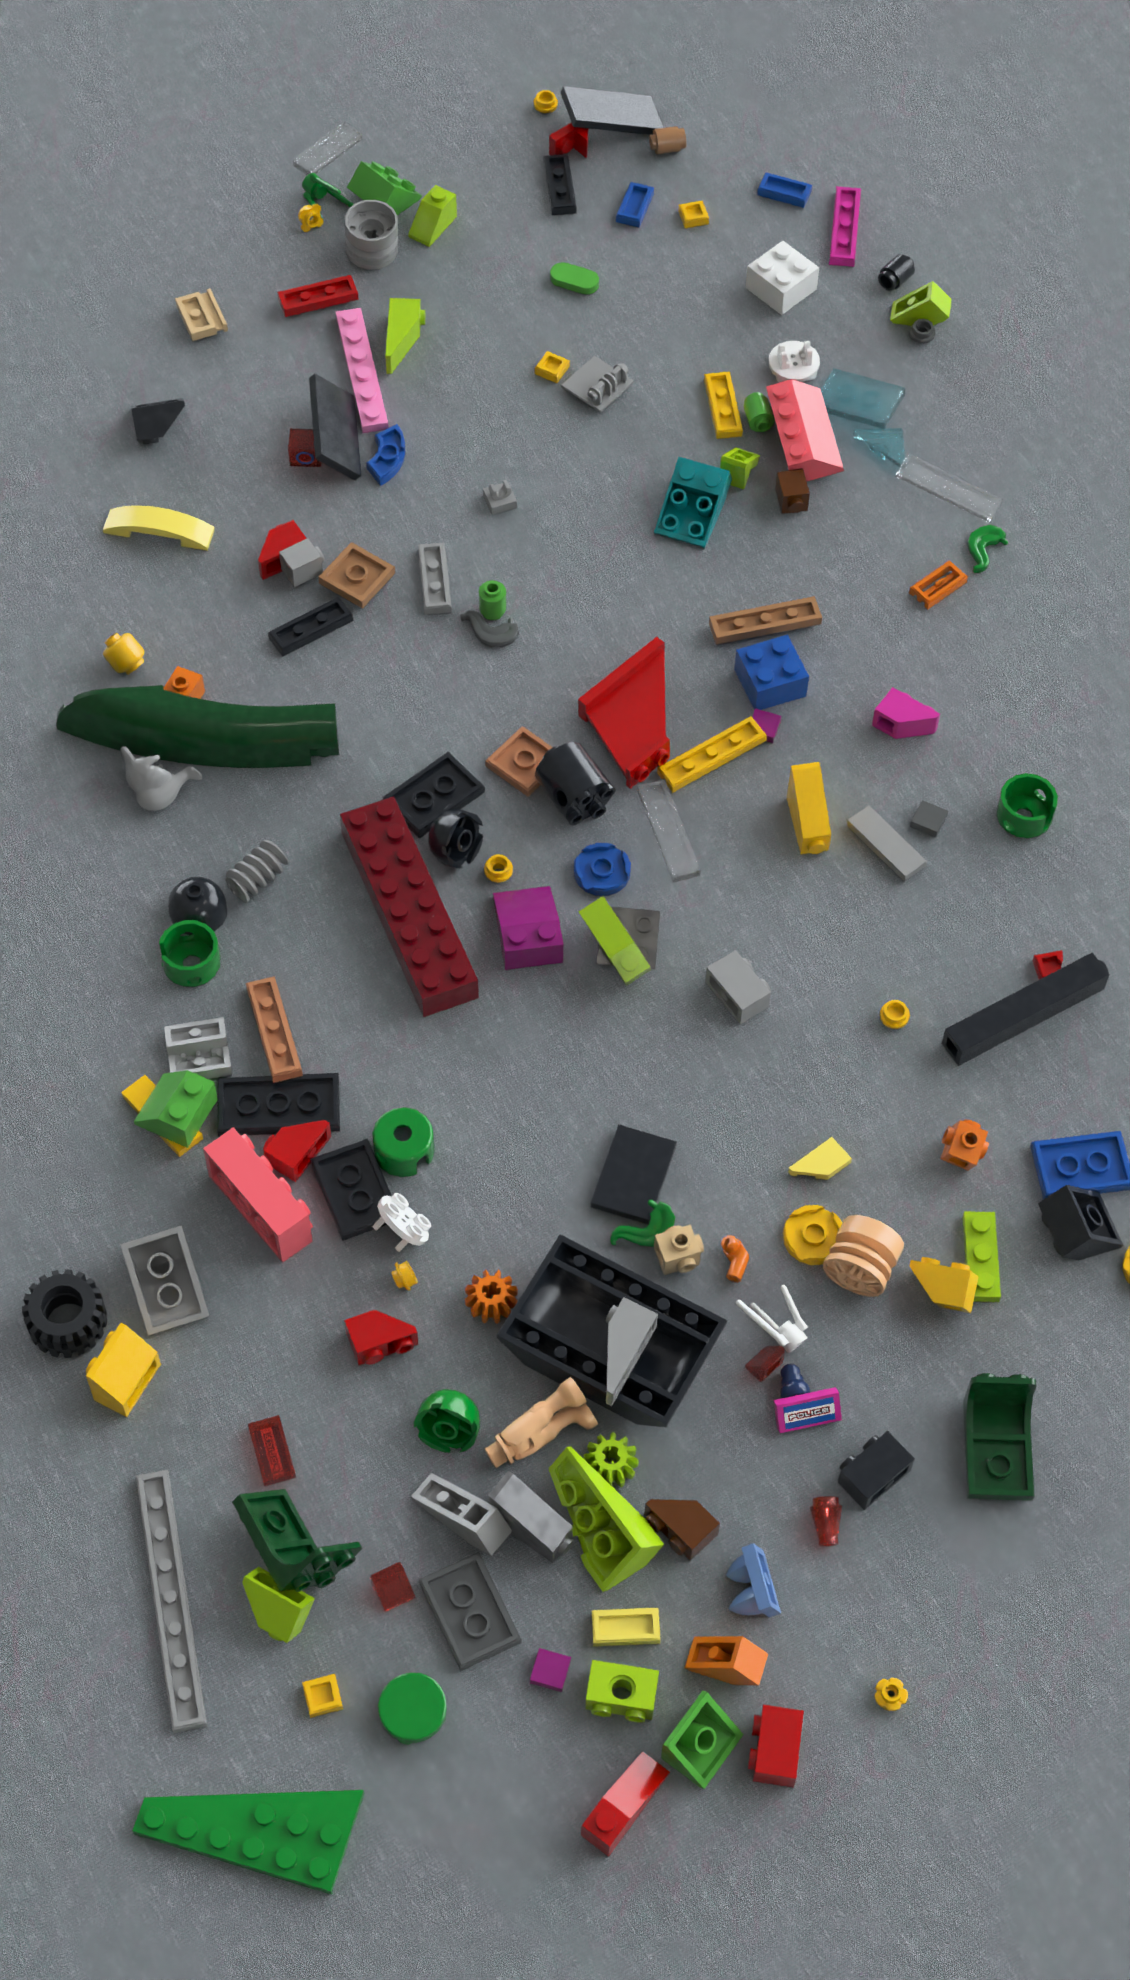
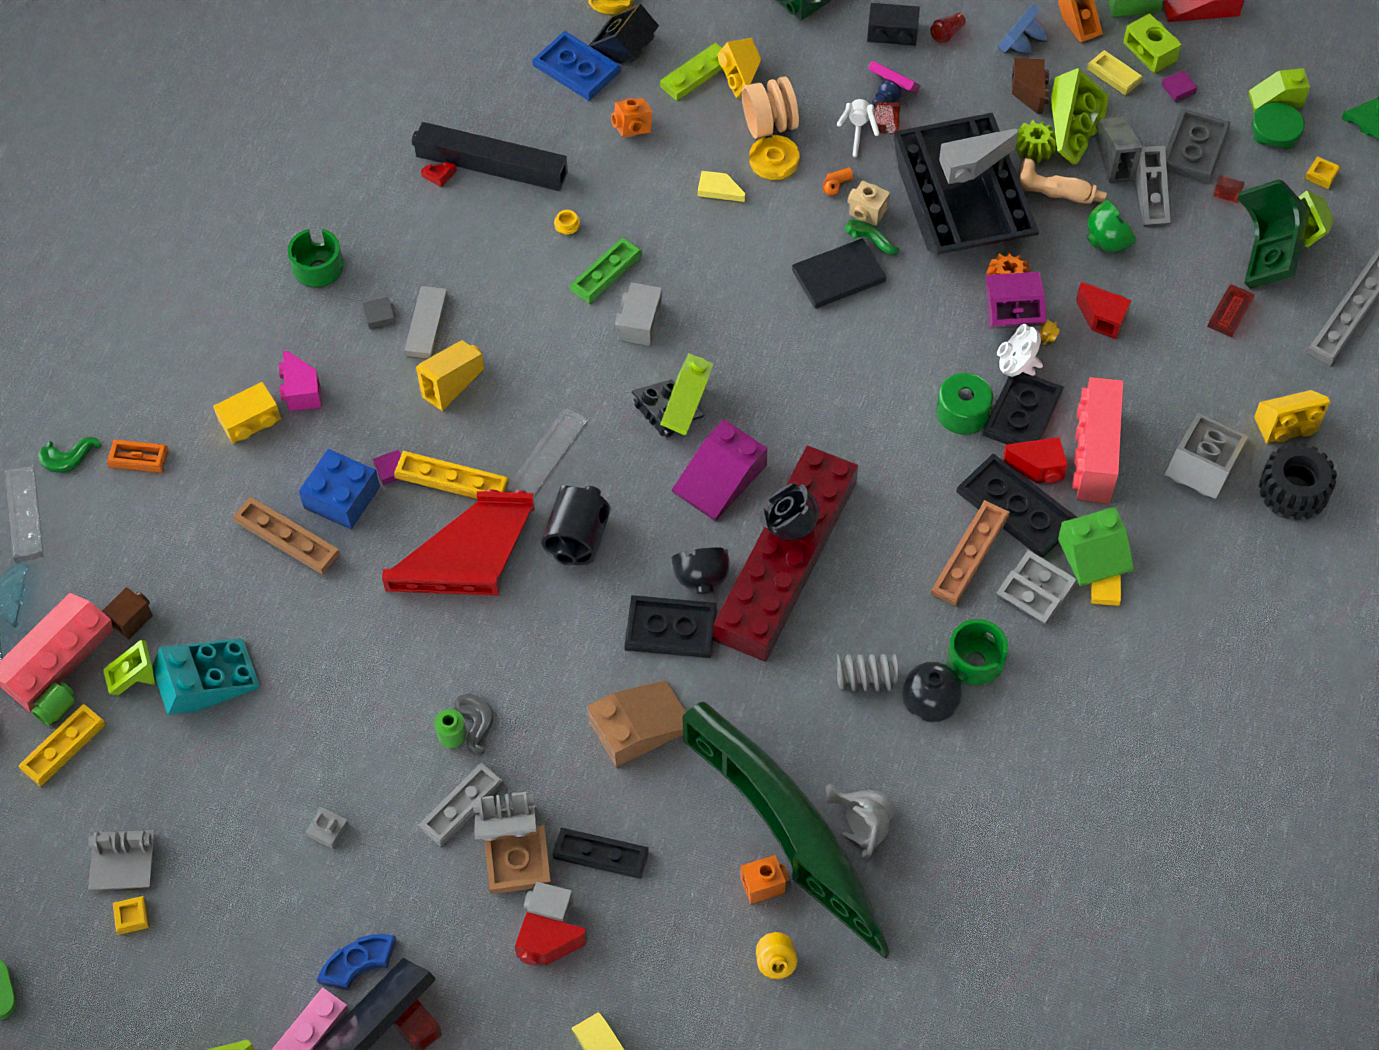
camera: 130 degrees left, 0 degrees up
(379, 712) = (636, 720): none -> medium nougat slope
(388, 580) = (513, 821): none -> light grey hinge
(415, 889) = (791, 513): none -> black cylinder
(444, 1751) = (1284, 87): none -> lime slope
(450, 1255) = (1015, 300): none -> magenta slope
(498, 862) = (692, 522): yellow plate -> none
(518, 760) = (578, 592): nougat tile -> none
(602, 869) = (623, 469): blue tile -> none
(814, 1007) = (605, 270): none -> bright green tile
(907, 664) = (247, 412): none -> yellow brick

